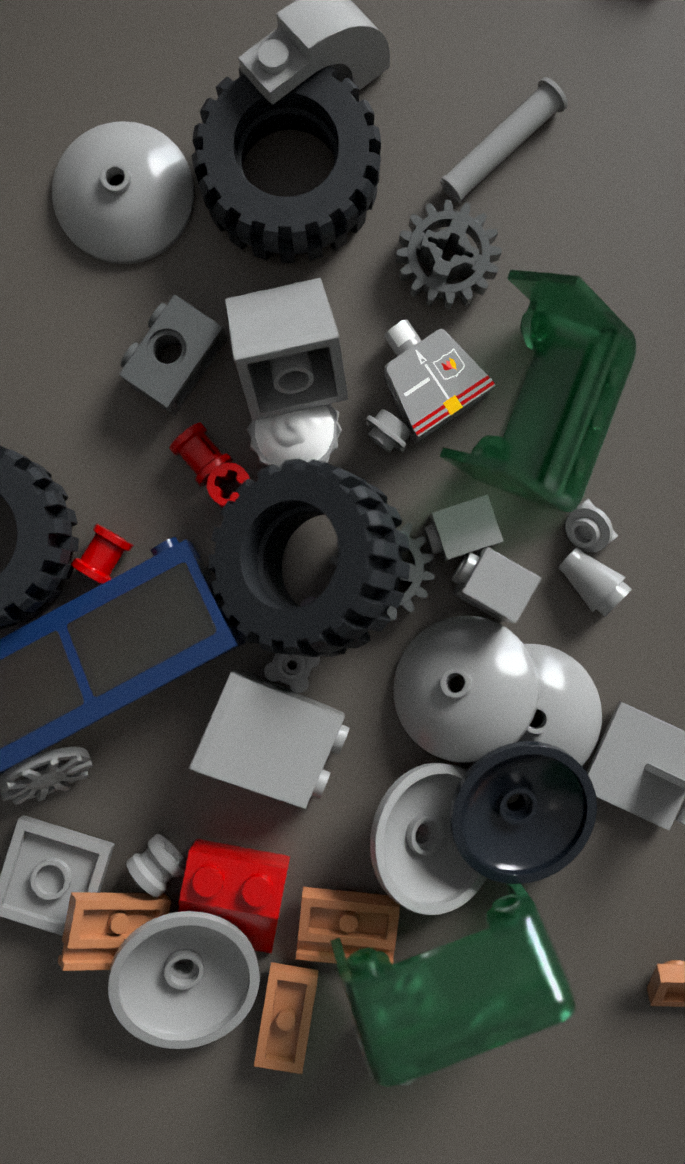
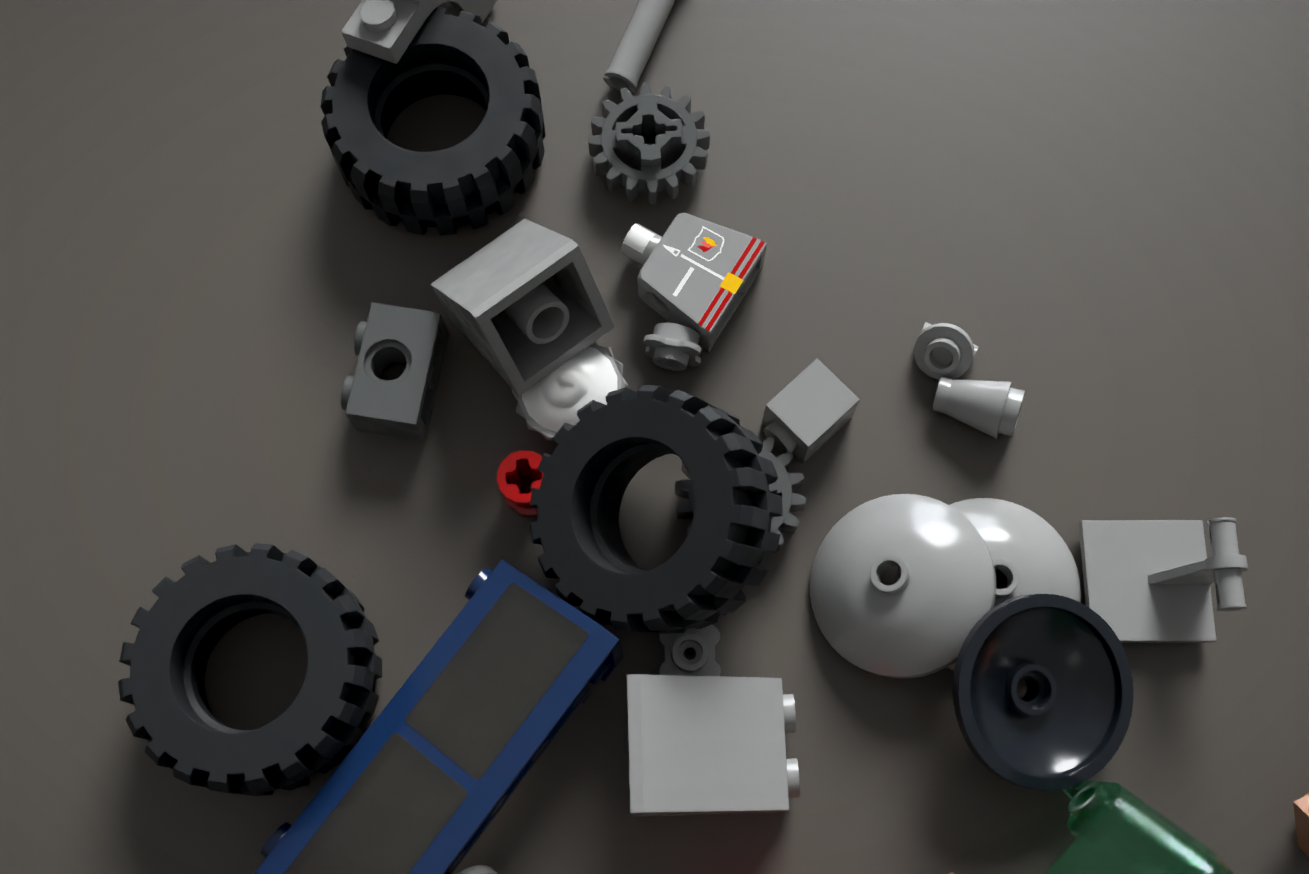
camera: 25 degrees left, 15 degrees down
(102, 554) = (409, 626): red bush -> none
(129, 219) = (284, 255): light grey dish -> none
(199, 452) = (471, 463): red bush -> none
(427, 870) = (941, 789): light grey dish -> none
(494, 584) = (874, 449): light grey brick -> none
(565, 398) = (844, 225): clear green windscreen -> none

